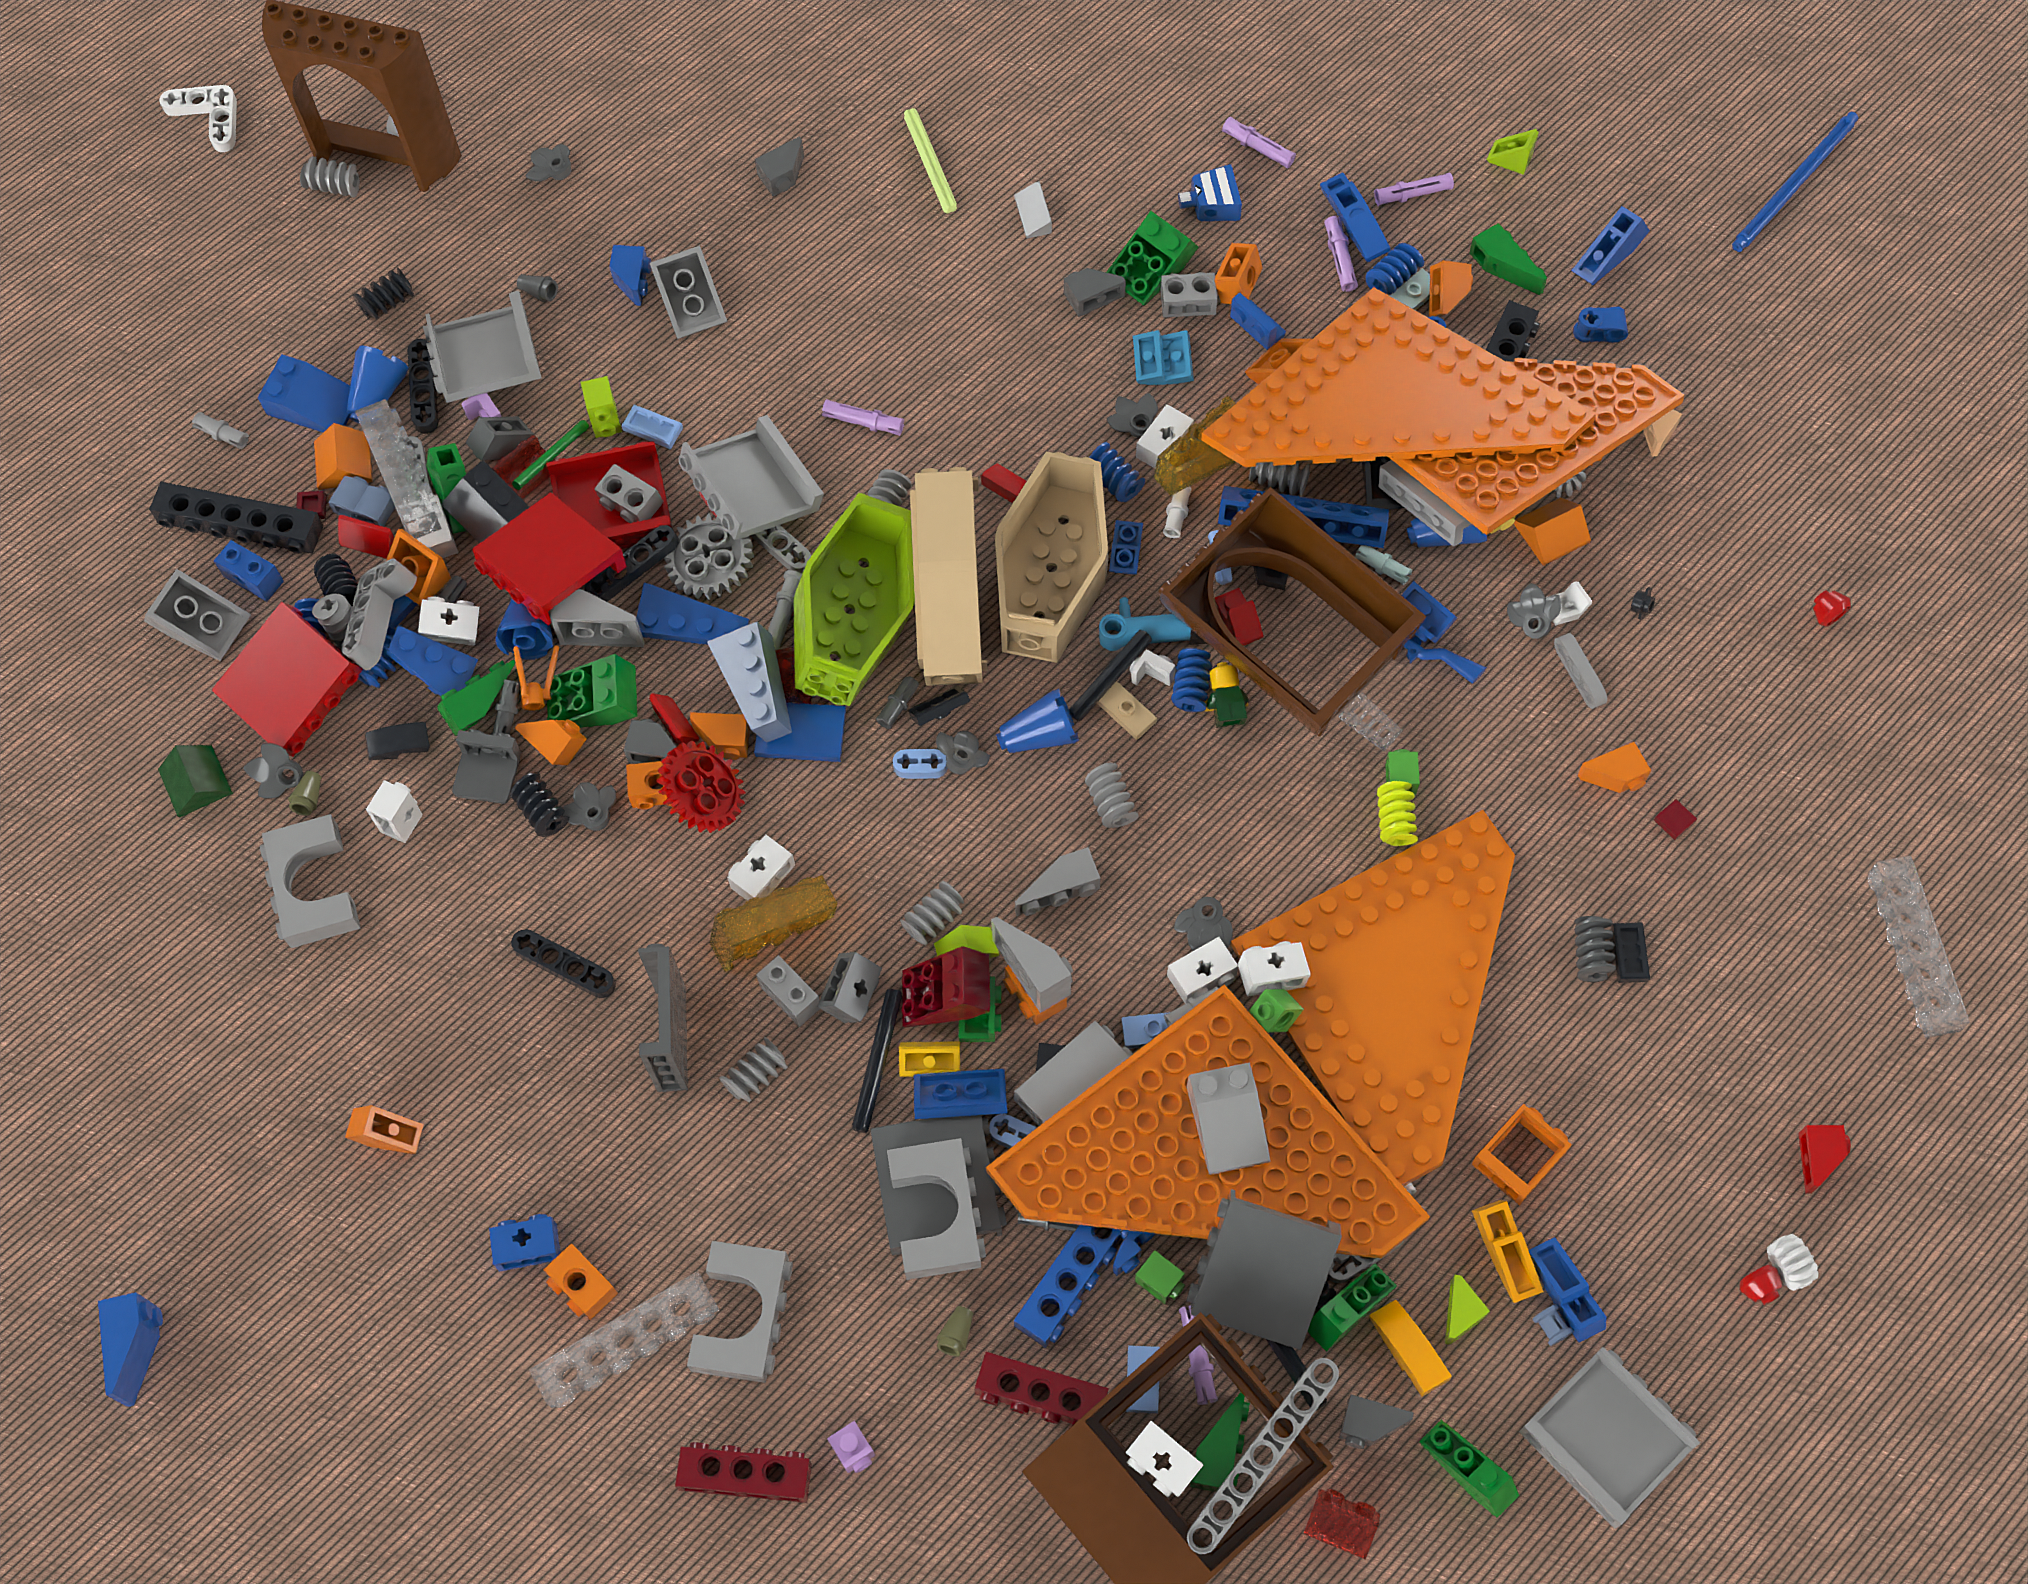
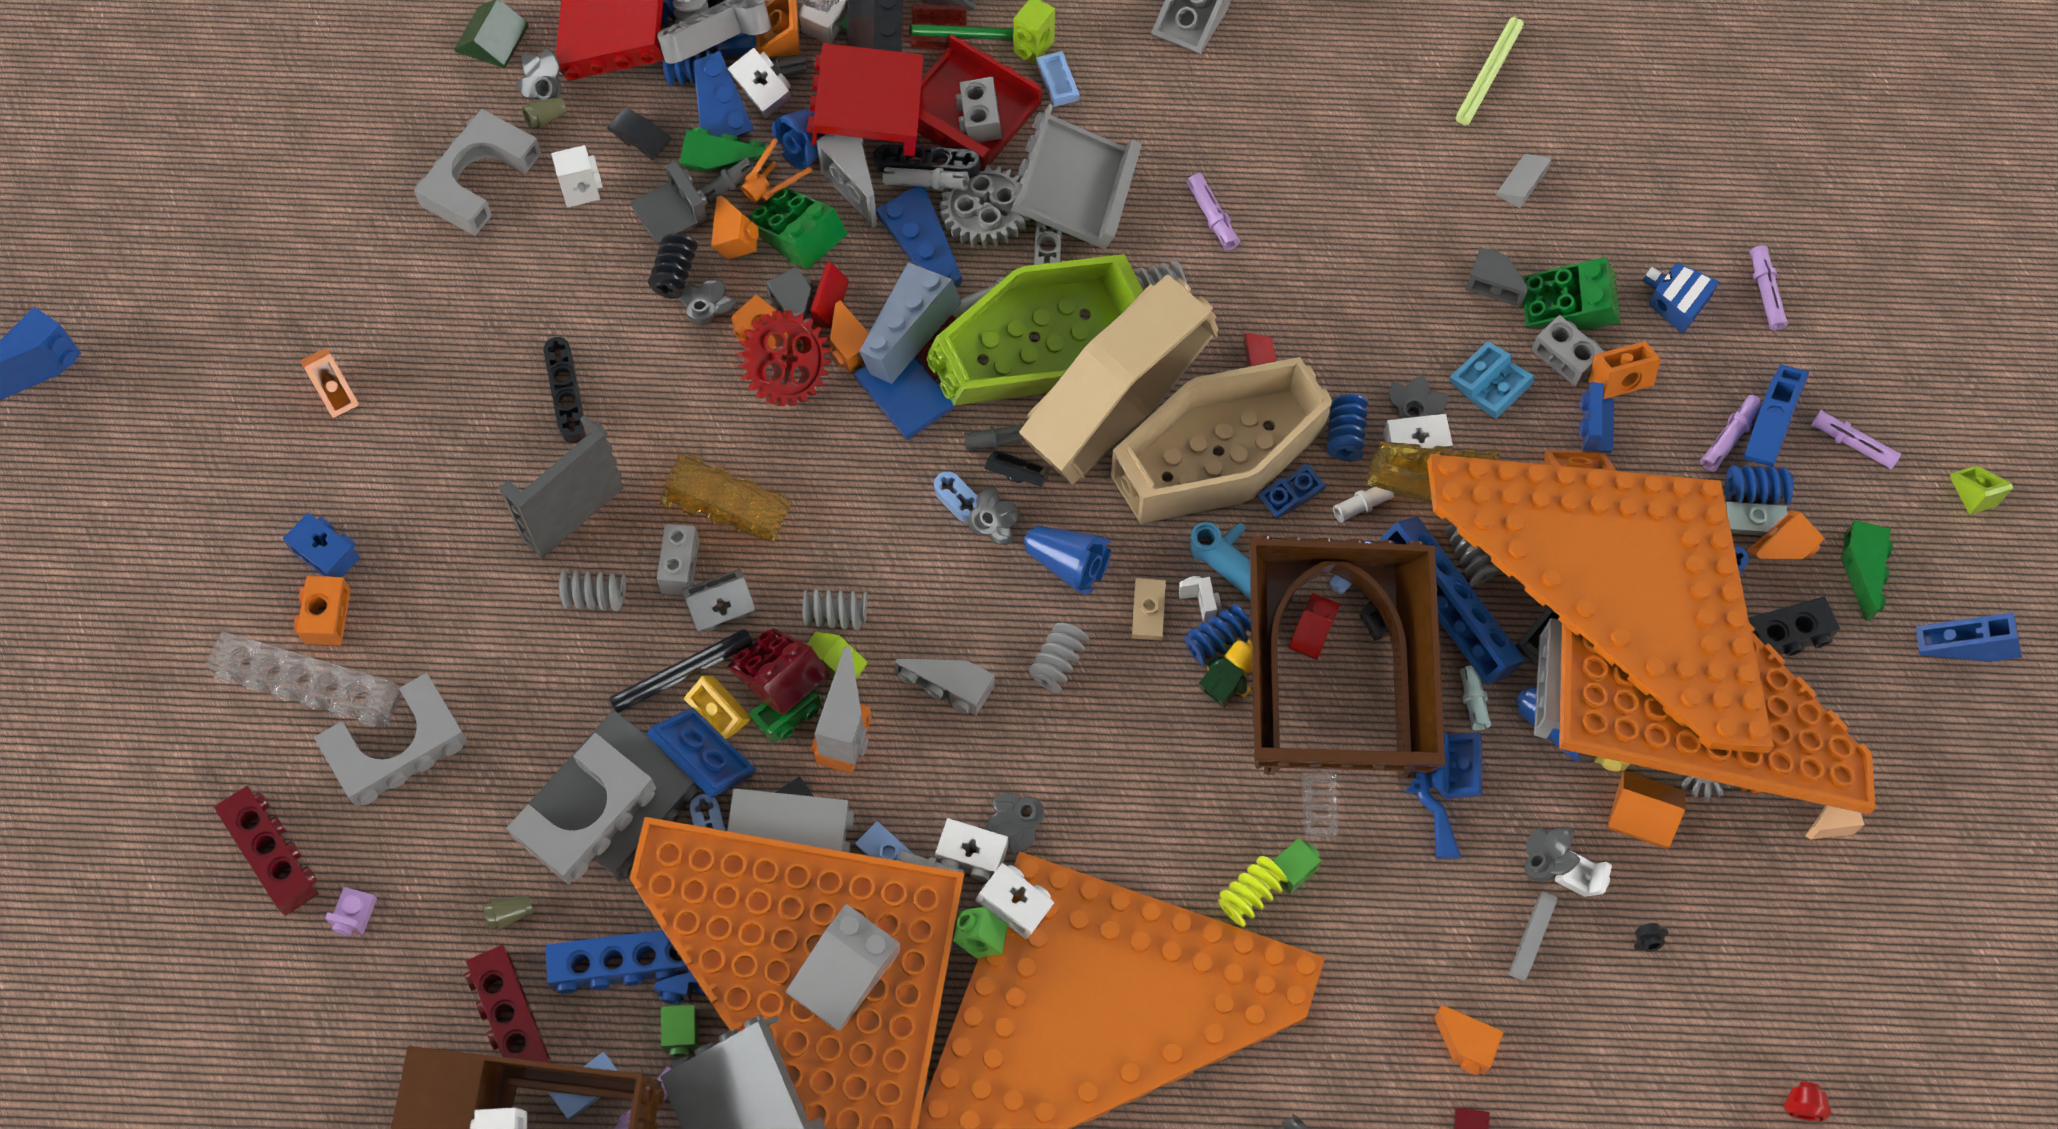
camera: 45 degrees right, 0 degrees up
(645, 577) = (935, 178): none -> light grey pin
(761, 854) = (773, 465): white brick -> none
(1110, 675) = (1163, 570): black axle -> none
(1603, 323) = (1888, 693): blue piece -> none

